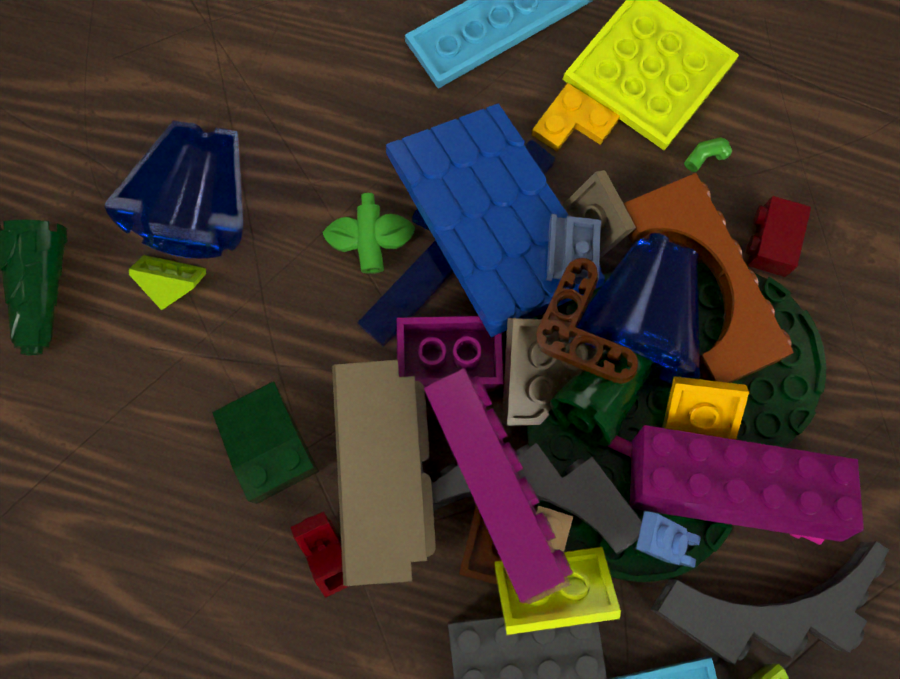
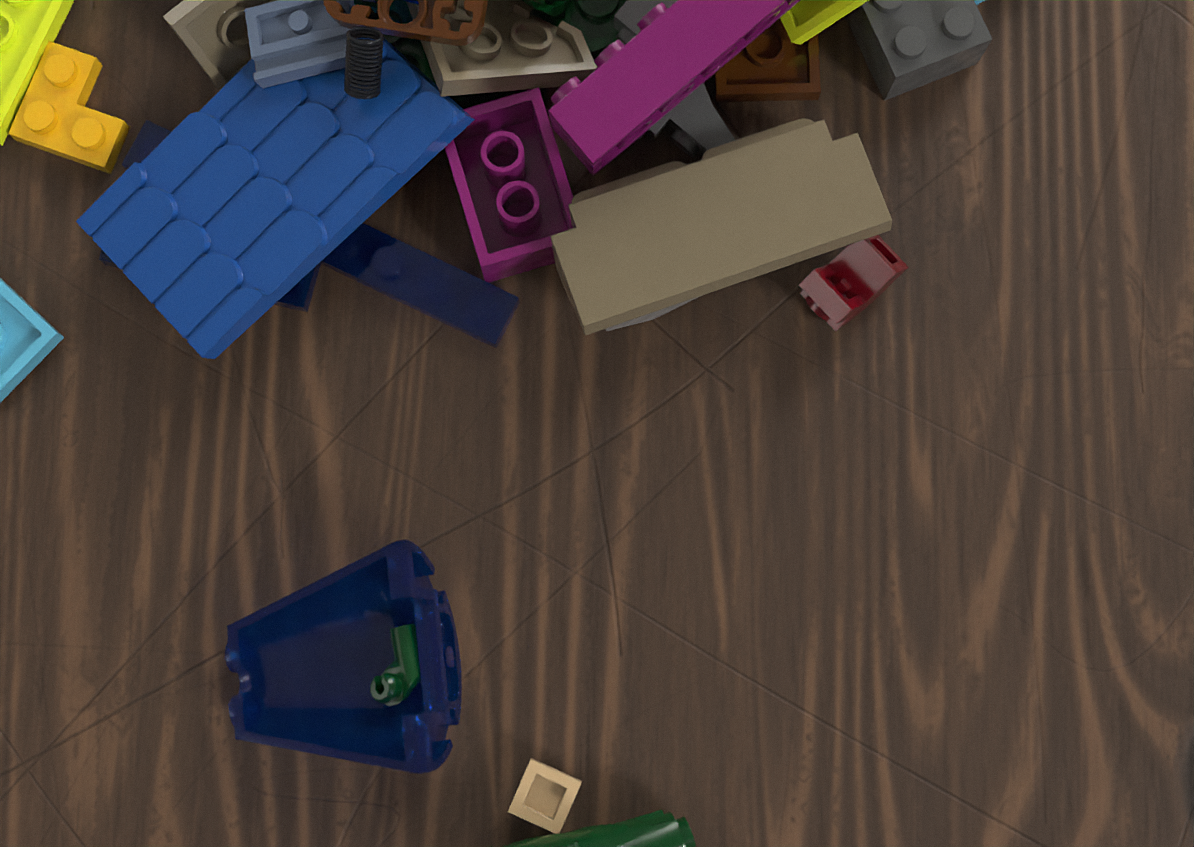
camera: 105 degrees left, 5 degrees up
(84, 280) = (544, 796): none -> tan plate
(165, 279) = (506, 665): lime slope -> none
(177, 216) = (403, 672): none -> dark green arm
(264, 443) = (717, 423): dark green slope -> none
(369, 234) = (347, 370): bright green plant -> none
(541, 272) = (364, 62): none -> black piece

